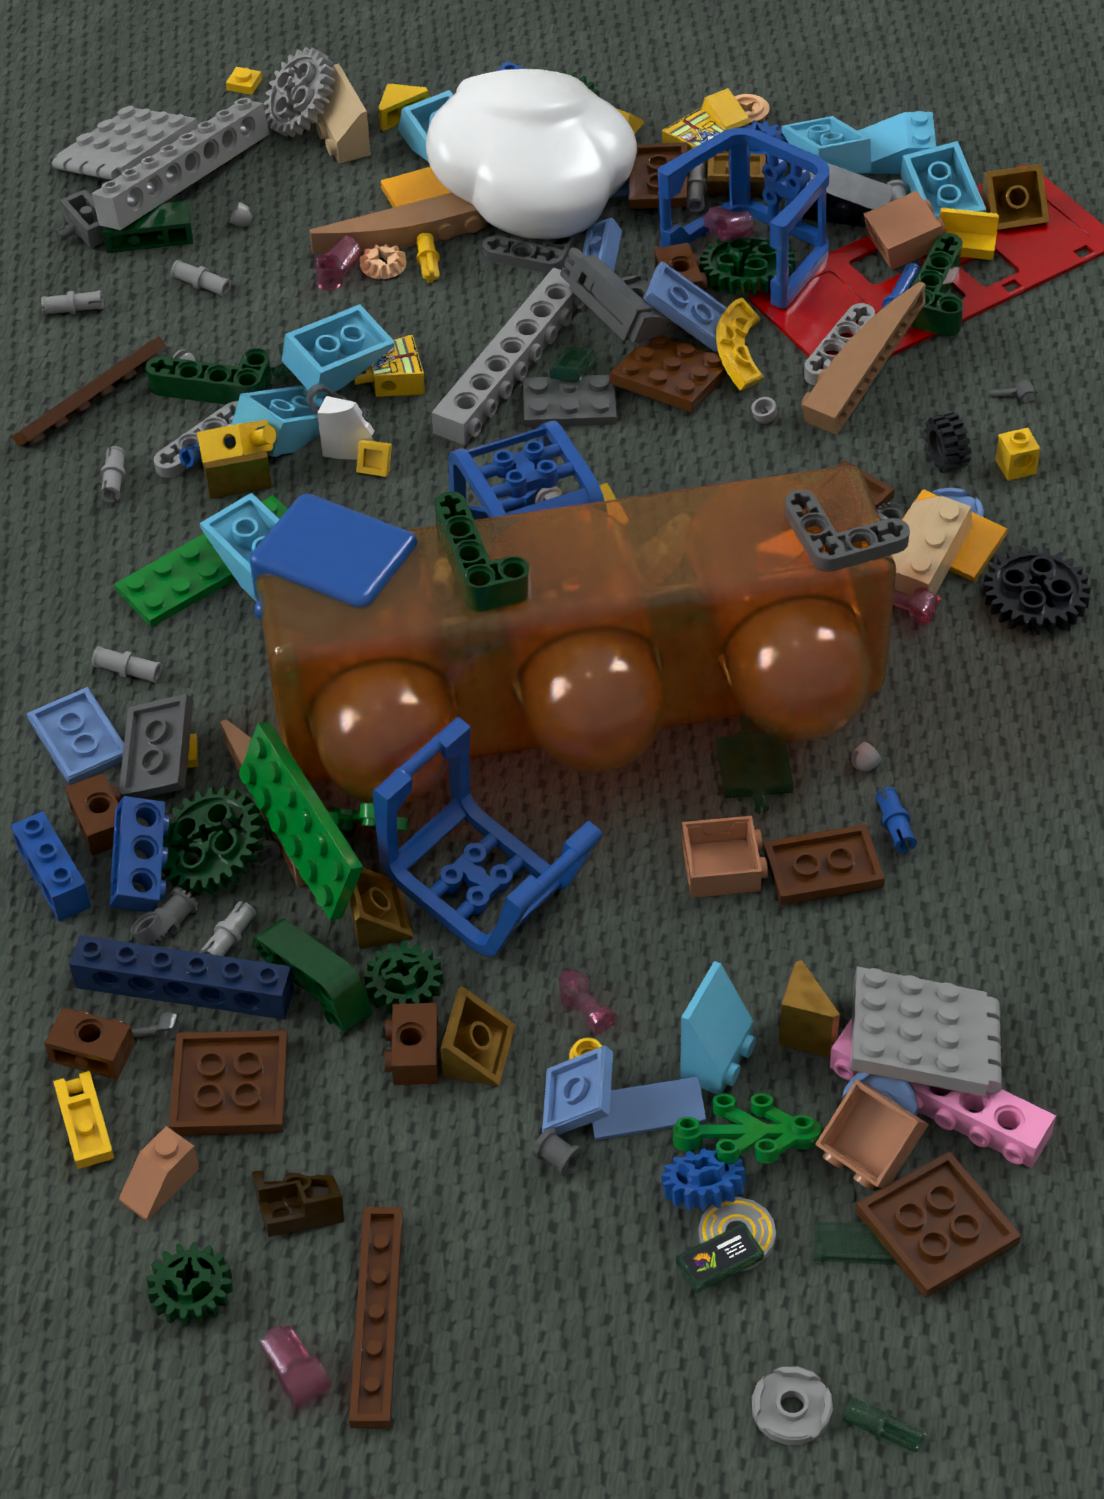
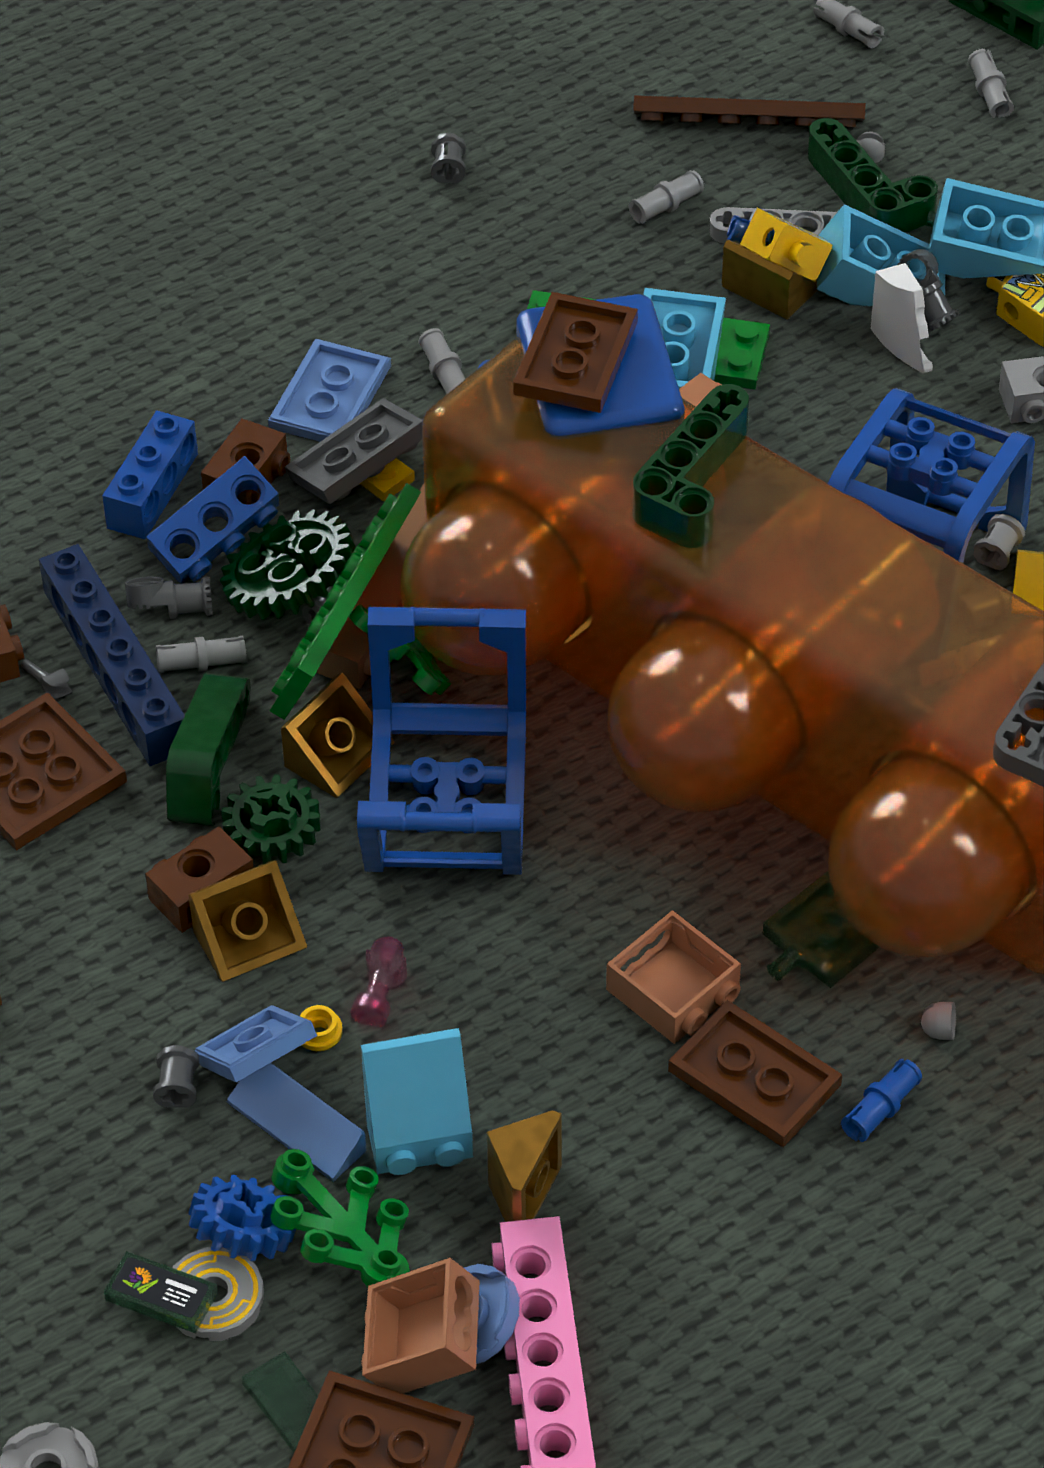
camera: 50 degrees right, 0 degrees up
(325, 549) = (575, 352): none -> reddish brown plate
(374, 458) = (901, 363): yellow plate -> none
(925, 1032) = (598, 1295): light grey hinge -> none

